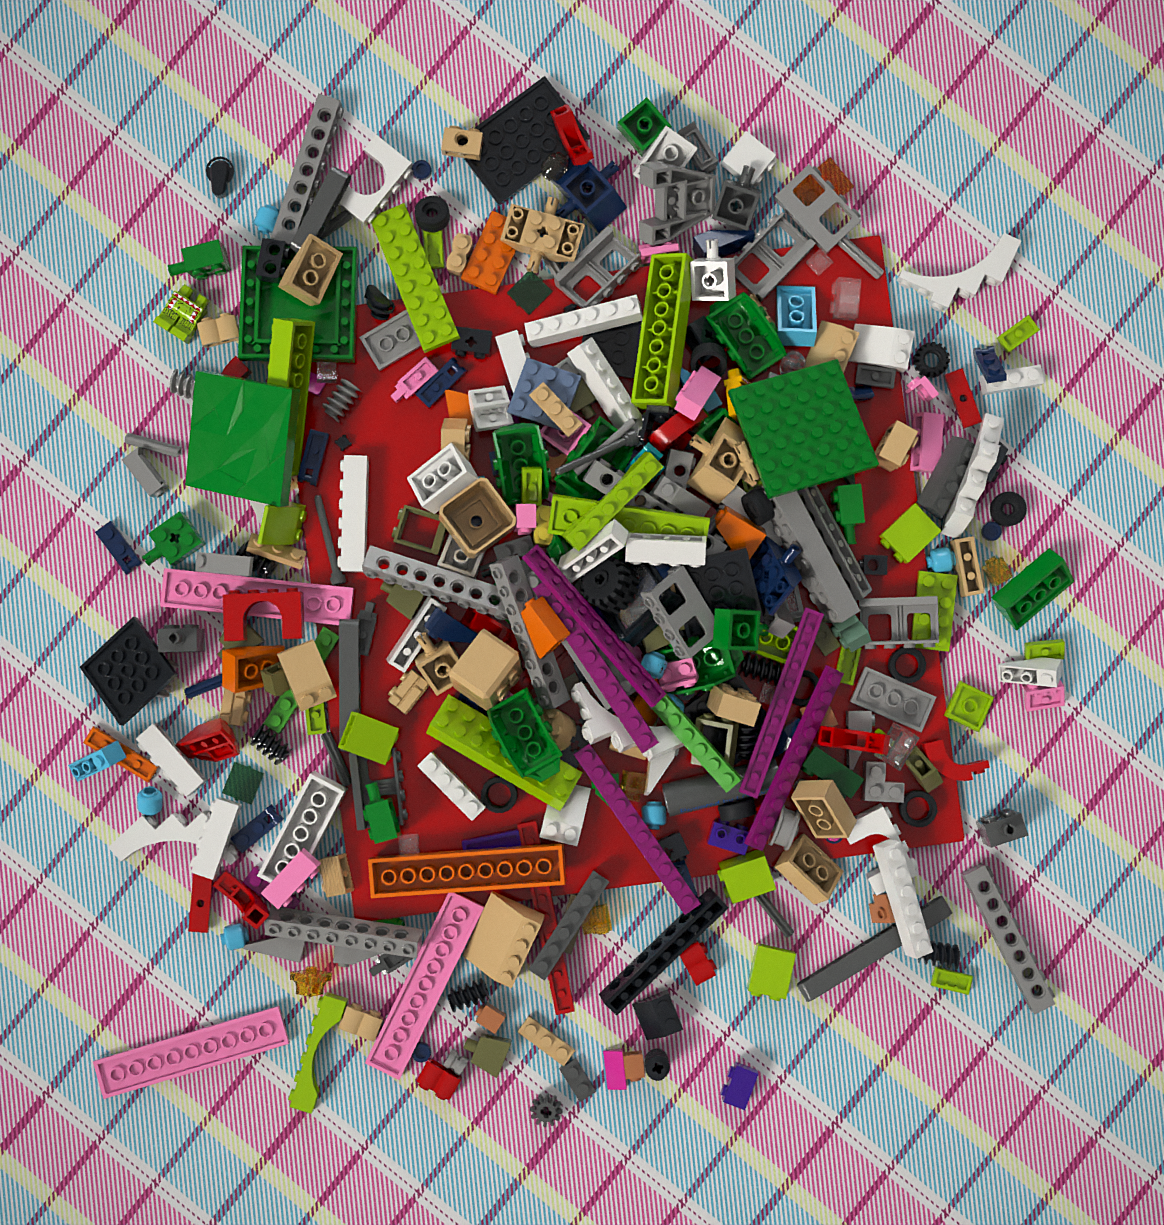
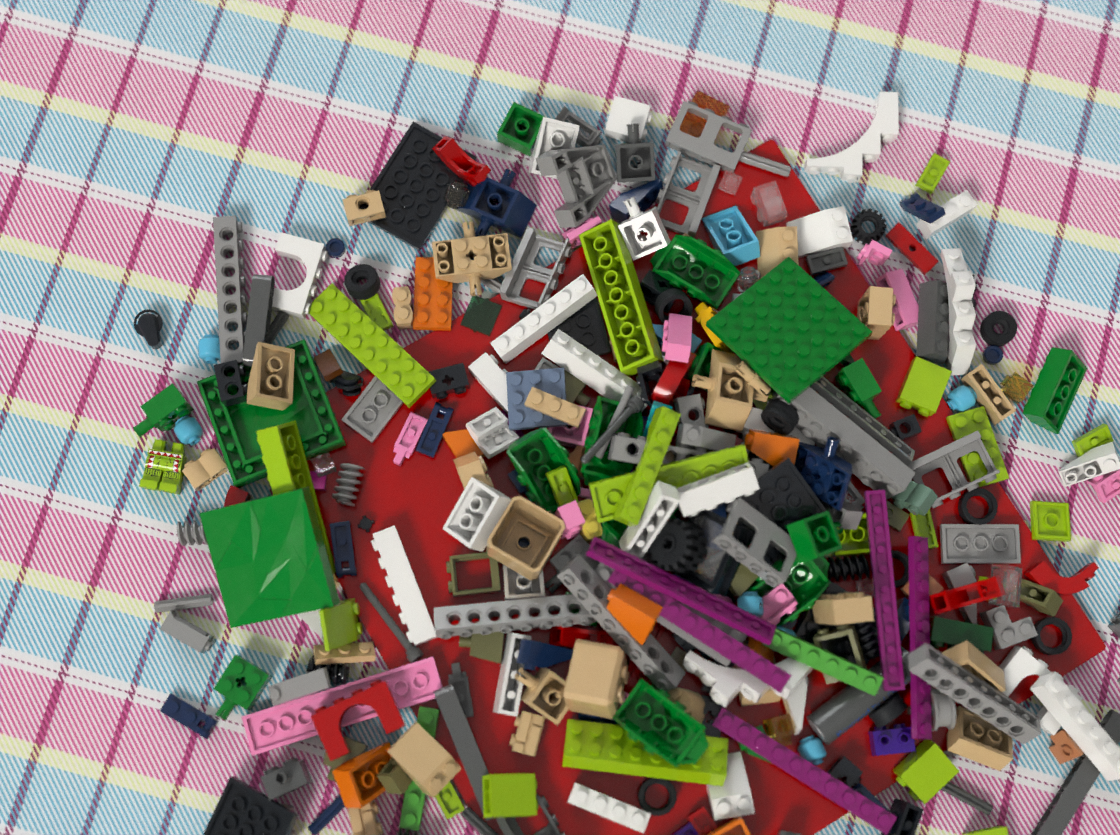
camera: 30 degrees left, 10 degrees down
(217, 288) = (188, 430): none -> medium azure head
(368, 280) = (328, 365): none -> reddish brown tile
(817, 828) = (974, 693): none -> light grey brick

